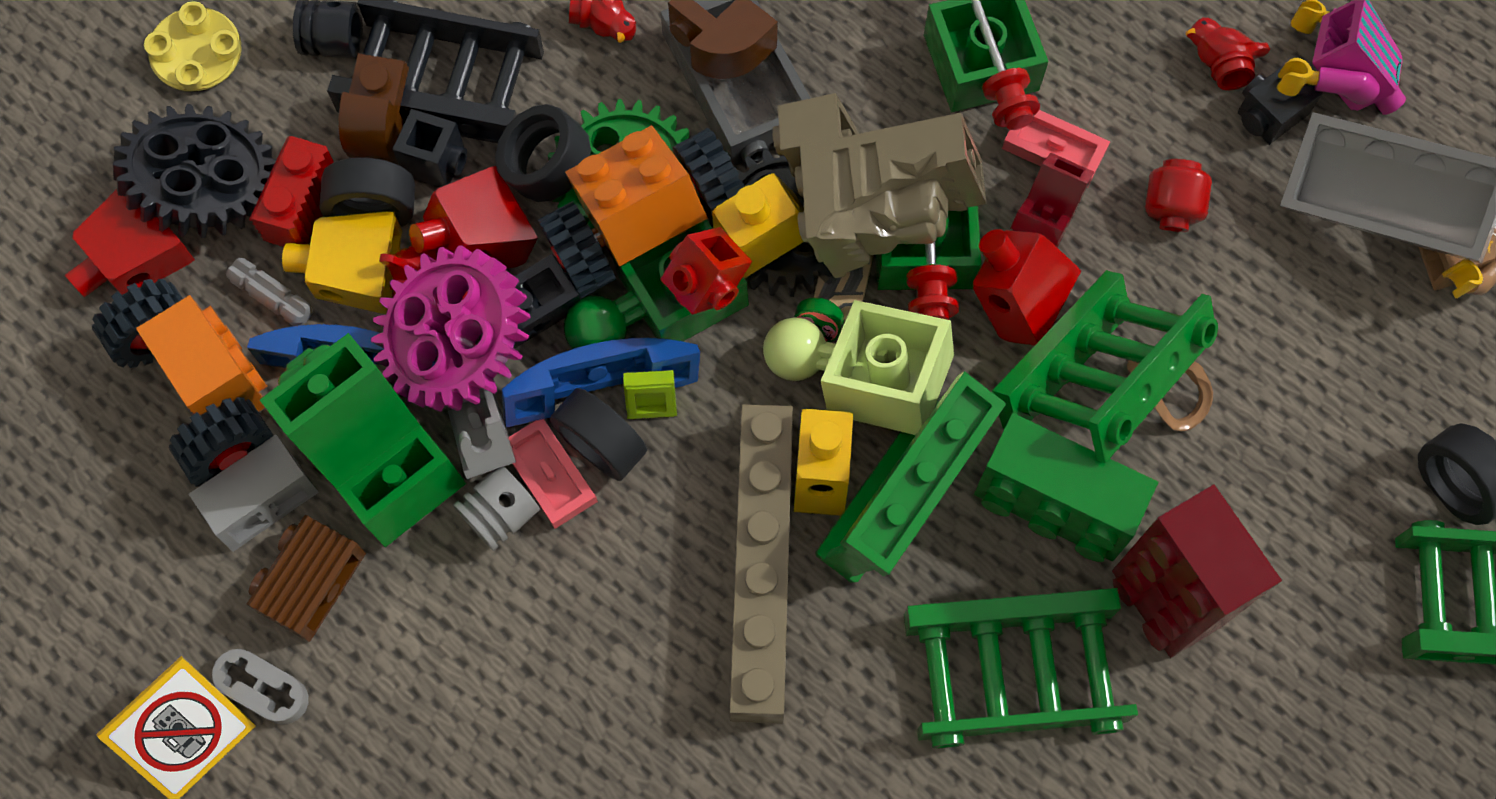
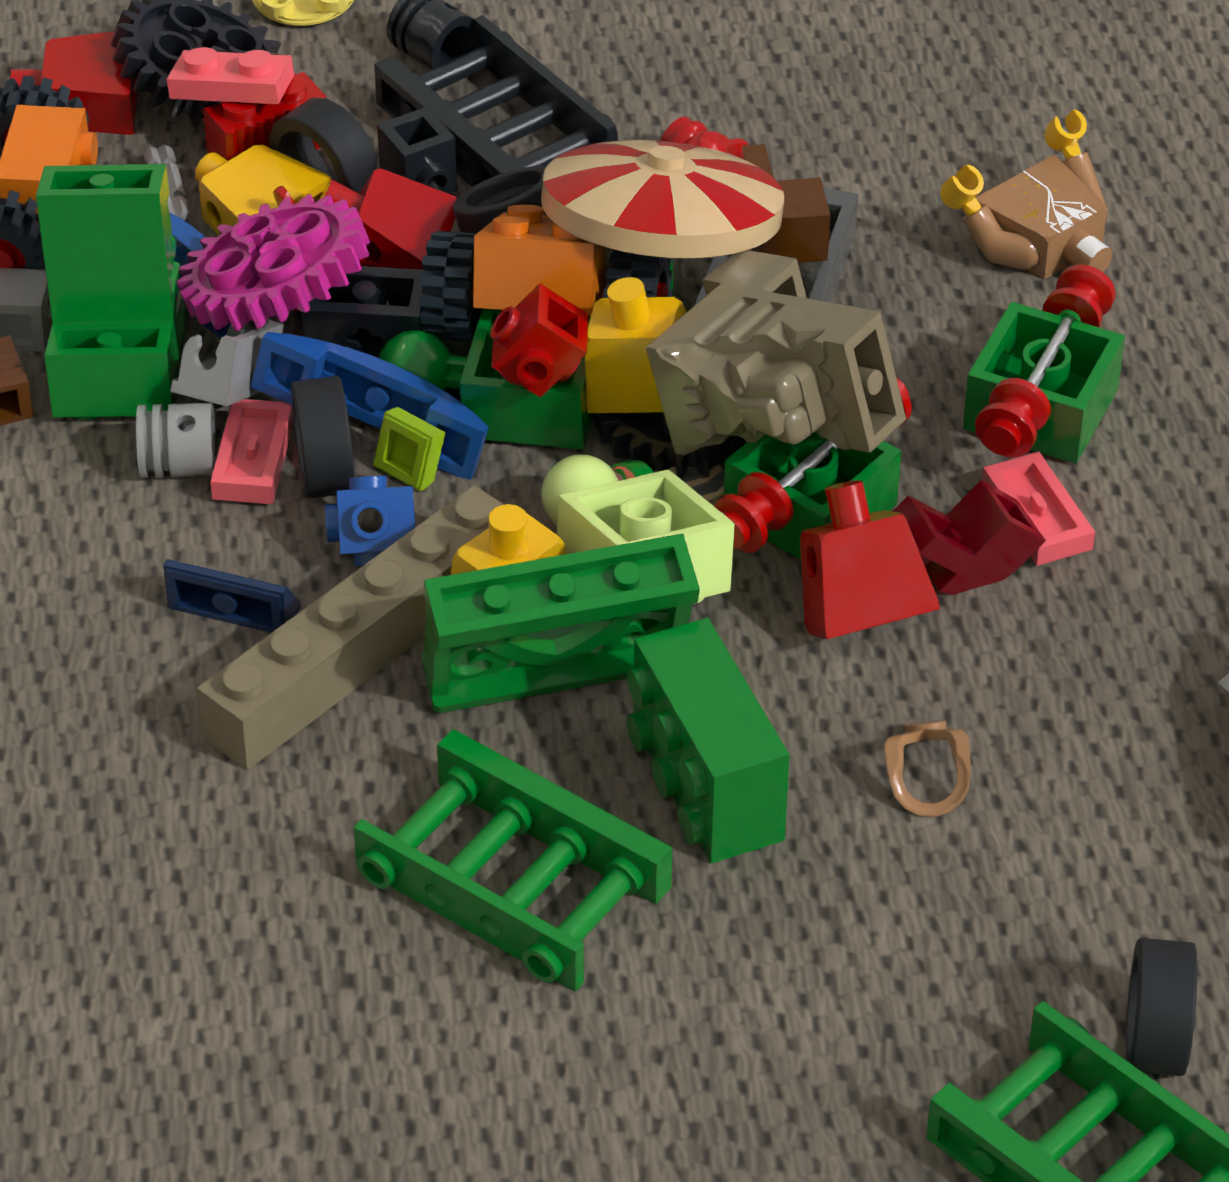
camera: 40 degrees right, 25 degrees down
(254, 183) = (230, 76): none -> coral plate
(371, 108) = (395, 89): reddish brown brick -> none
(649, 600) = (228, 597): none -> dark blue slope
(686, 98) = (662, 199): none -> tan dish
(690, 473) = (365, 493): none -> blue brick
(1088, 329) = (864, 659): green fence -> none
(1178, 194) = (1120, 615): red head -> none
(1193, 572) = (729, 835): dark red brick -> none

